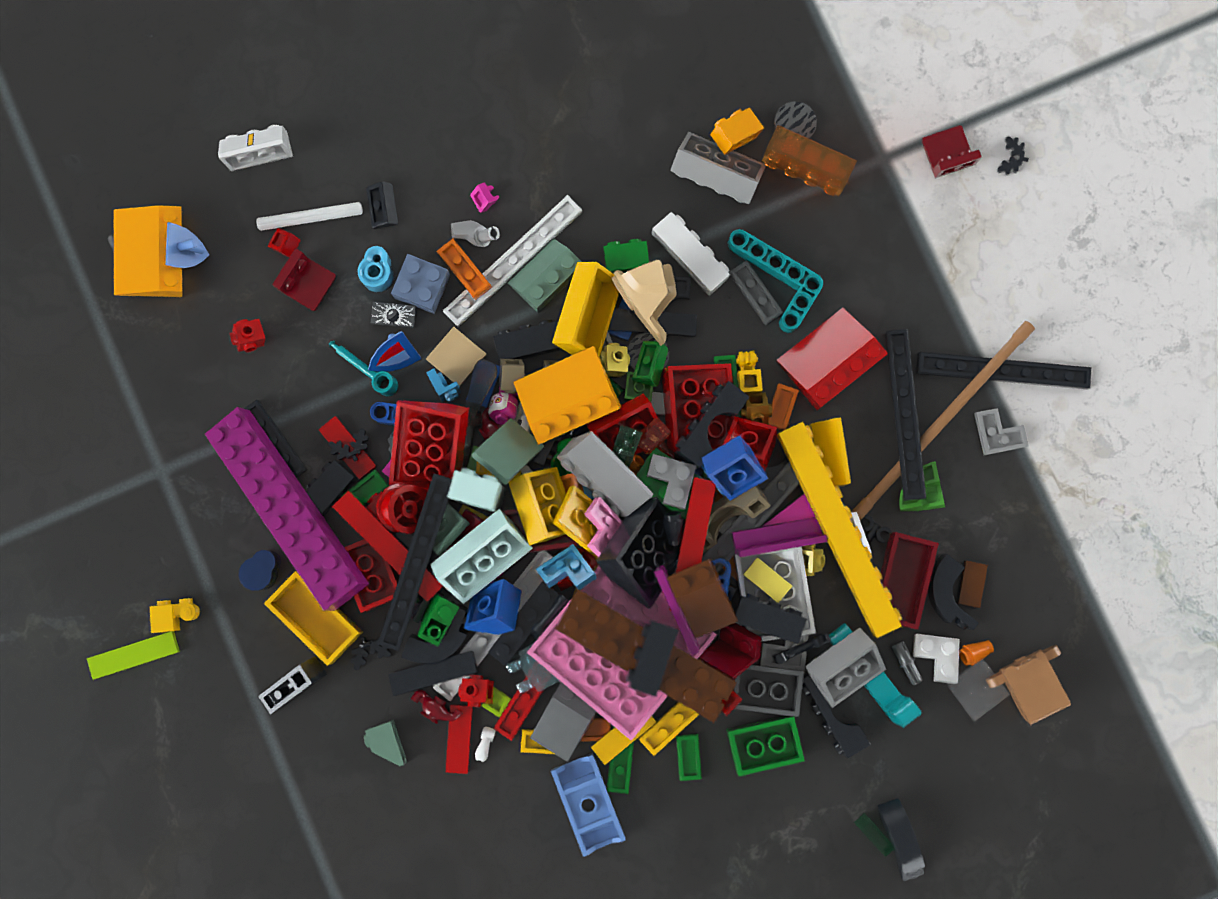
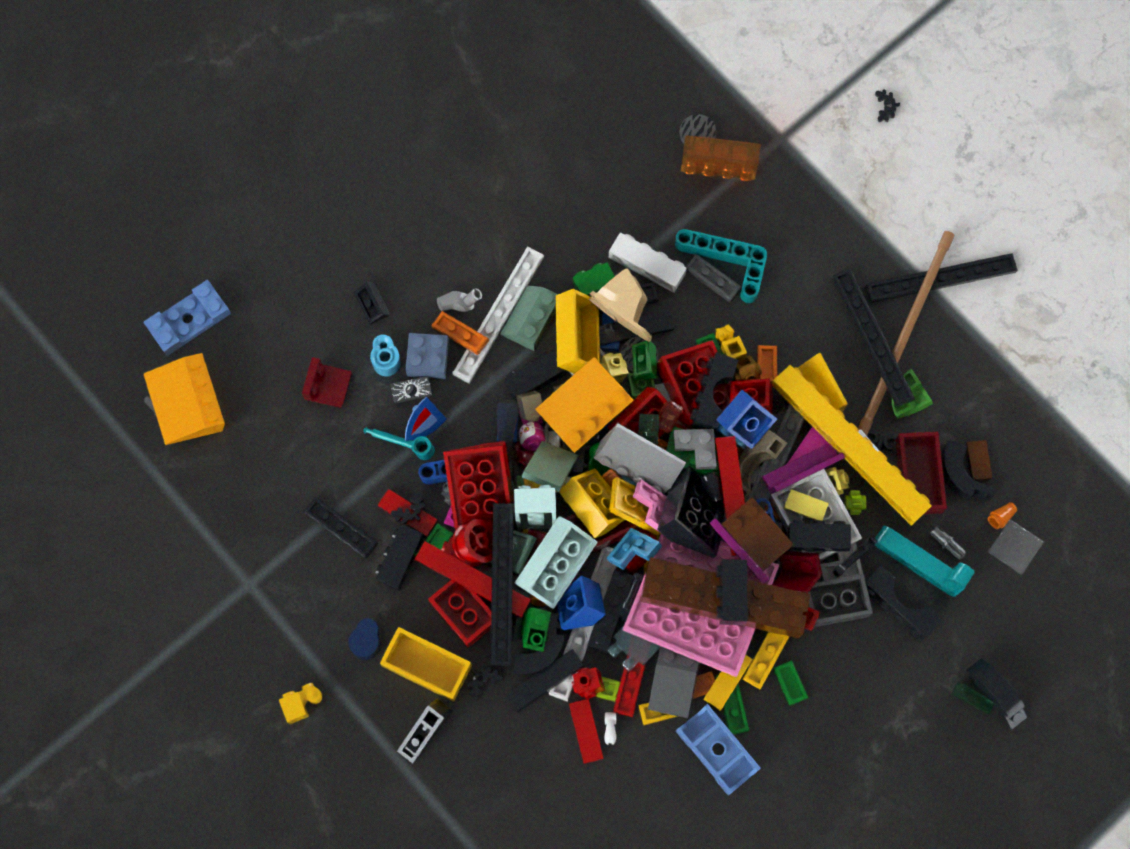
camera: 15 degrees left, 10 degrees down
(133, 655) = (274, 750): lime tile -> none
(159, 168) = (169, 327): none -> medium blue piece
(183, 247) = (215, 387): medium blue shield -> none
(247, 335) = (292, 443): red brick -> none
(255, 148) = (249, 287): white slope -> none
(284, 242) = (297, 358): red slope -> none
(286, 509) = (374, 576): magenta brick -> none
(309, 216) = (312, 330): white axle -> none
(385, 742) = (522, 753): sand green slope -> none
(434, 708) = (556, 710): dark red piece -> none
(444, 391) = (470, 432): dark azure bracket -> none
(456, 356) = (476, 408): tan tile -> none
(482, 197) = (457, 269): dark pink tile -> none
(708, 166) = (646, 187): light grey slope -> none
(736, 130) = (652, 151): light orange brick -> none
(765, 745) = (852, 648): green brick -> none
(823, 588) = (855, 502): none -> lime gear
(831, 358) = (795, 311): slope -> none
(846, 667) = (898, 558): light grey slope -> none
(944, 652) = (974, 523): white plate -> none
(949, 151) = (833, 117): dark red bracket -> none
(996, 439) = (953, 334): light grey plate -> none
(1033, 685) = (1060, 525): medium nougat piece -> none

